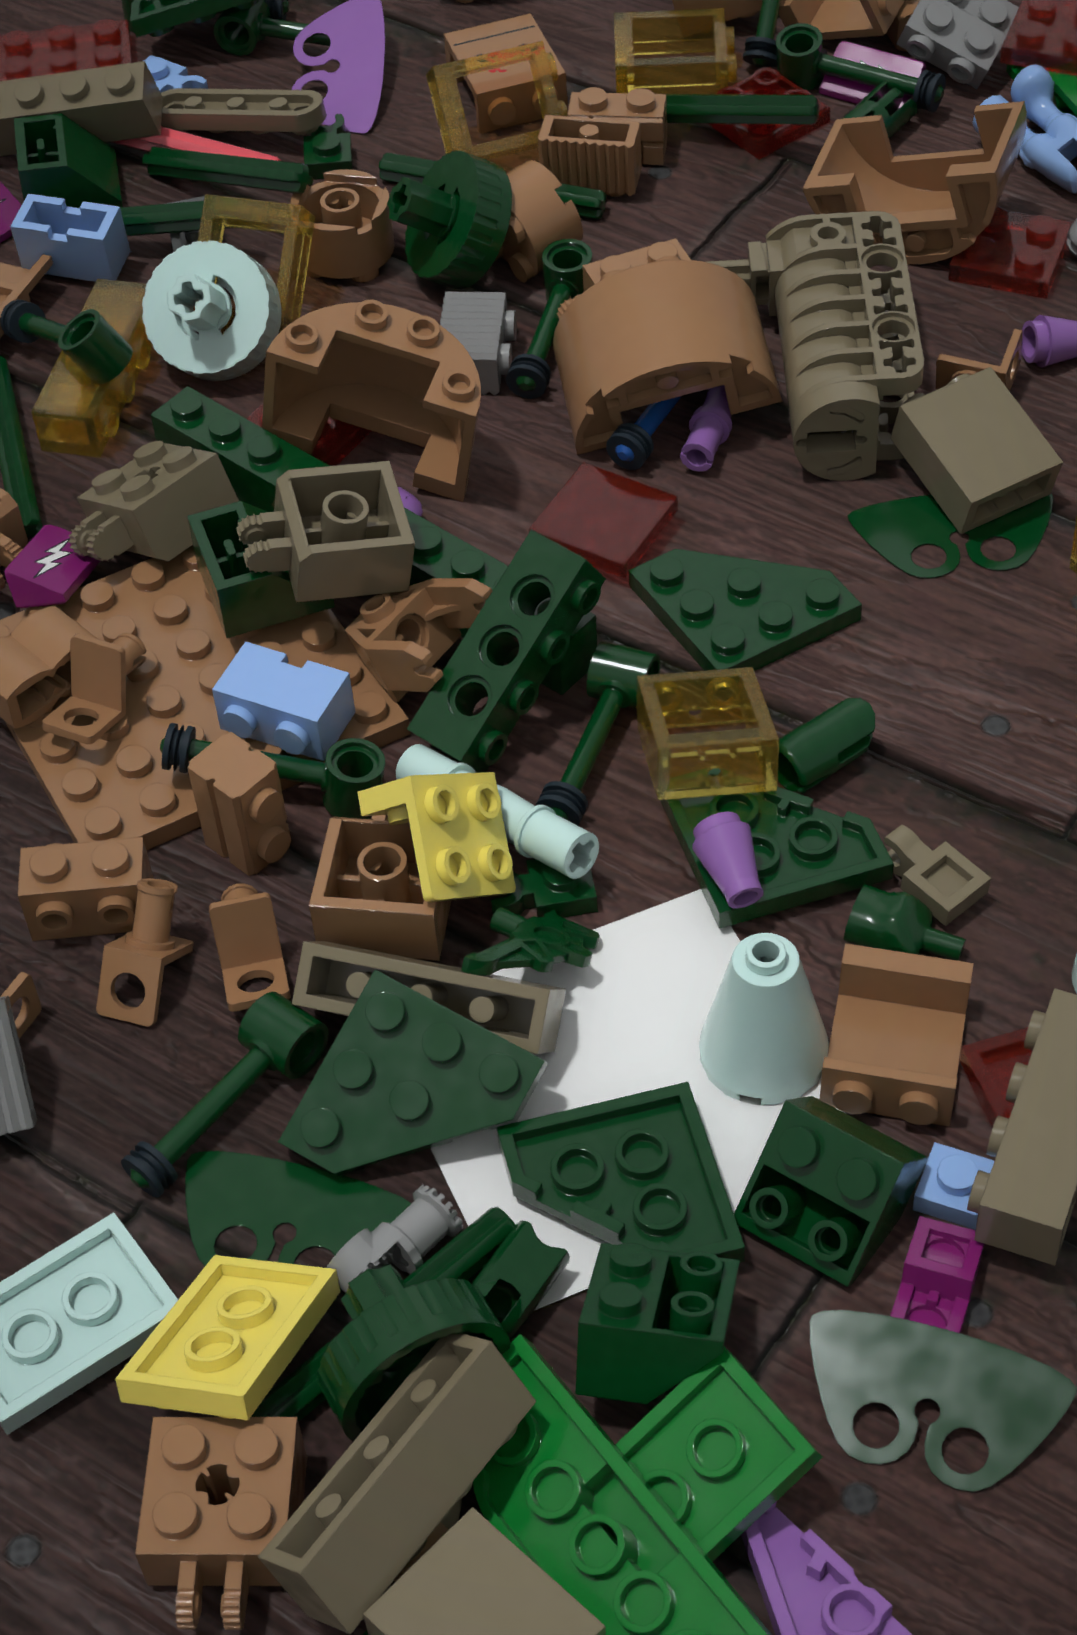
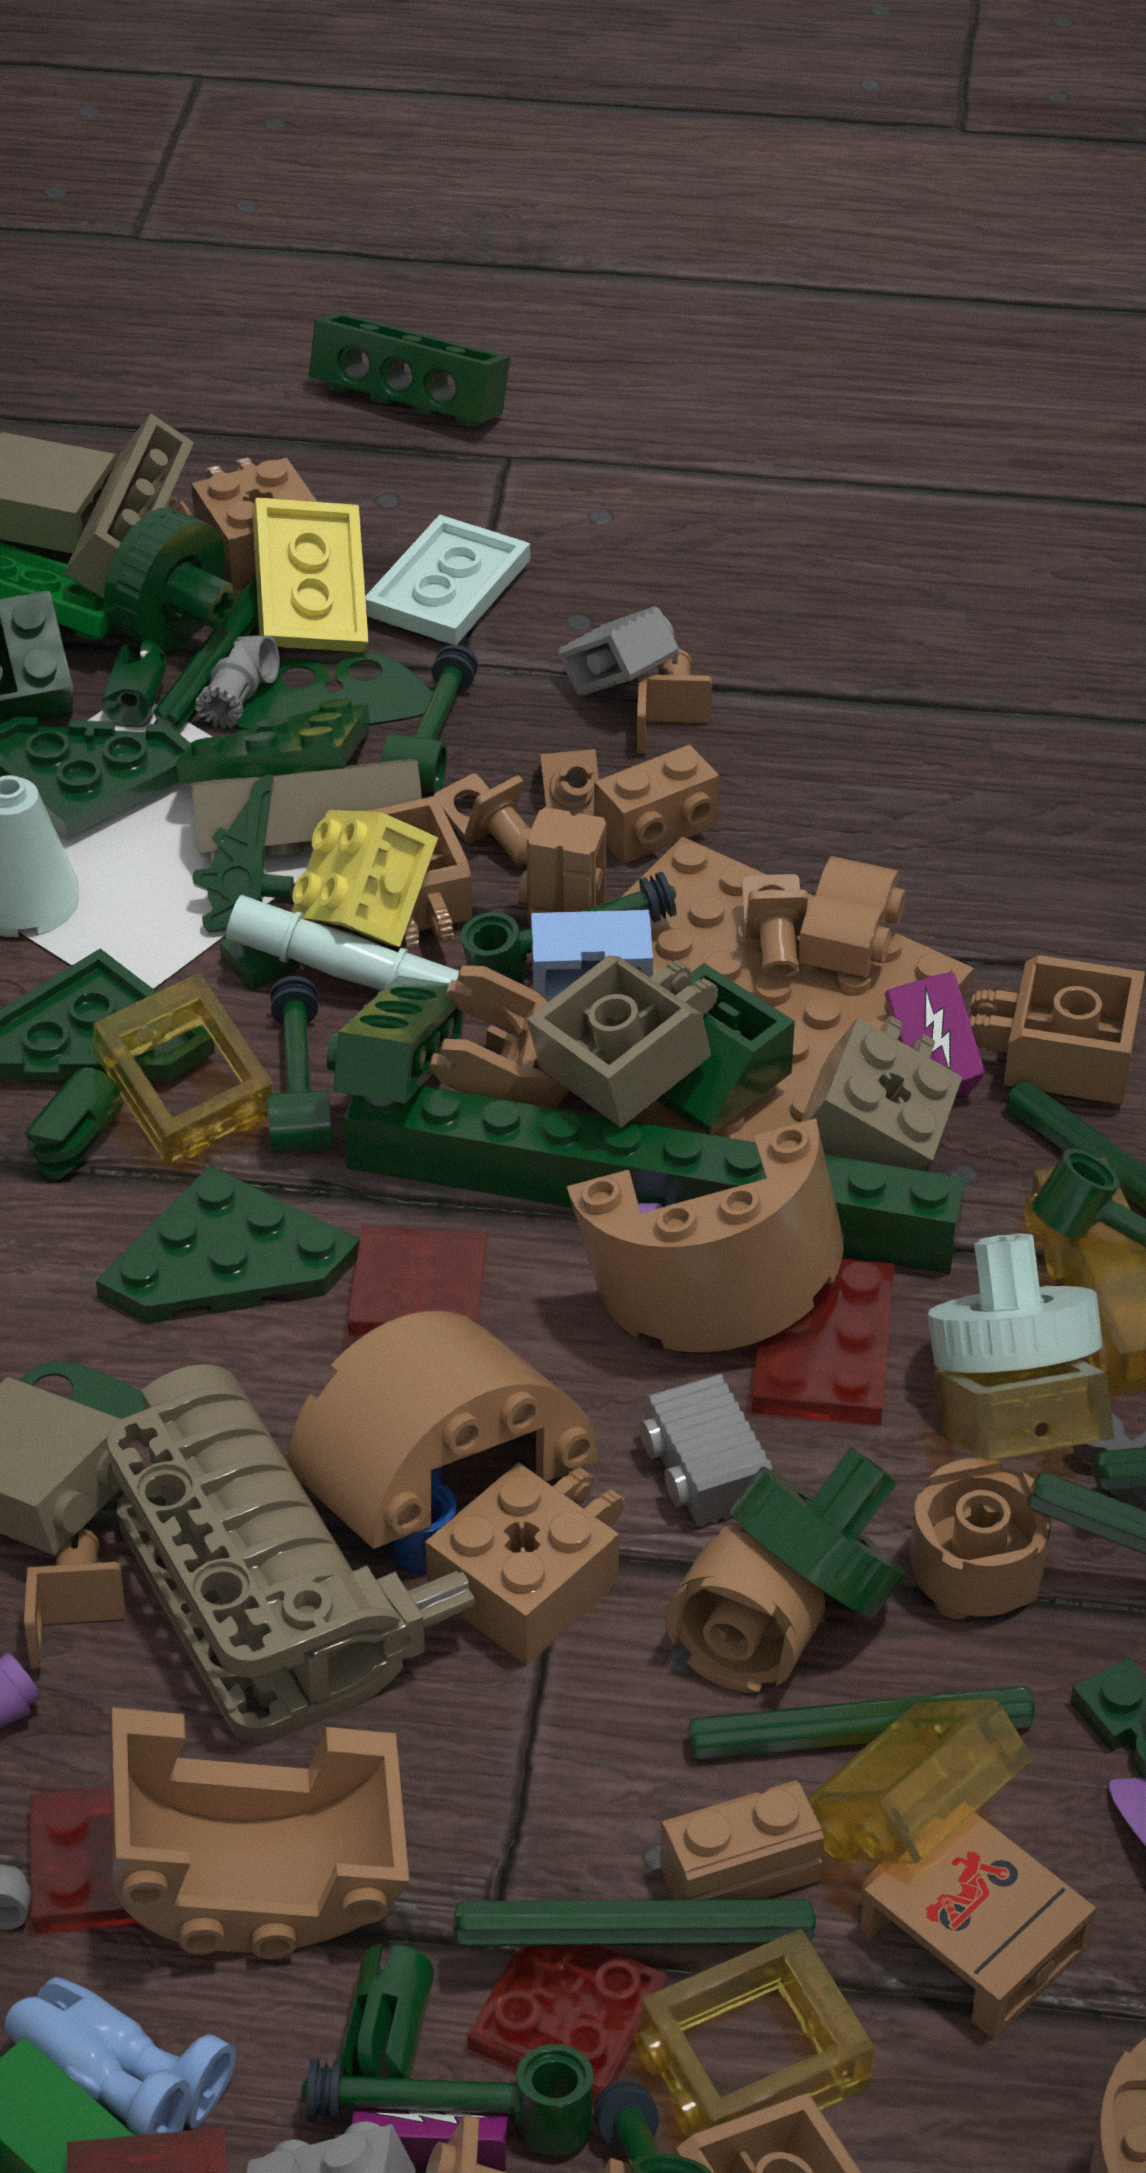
camera: 150 degrees right, 5 degrees down
(562, 279) = (651, 1563): dark green piece -> none
(592, 152) = (740, 1757): medium nougat brick -> none
(728, 855) = (107, 964): medium lavender cone -> none

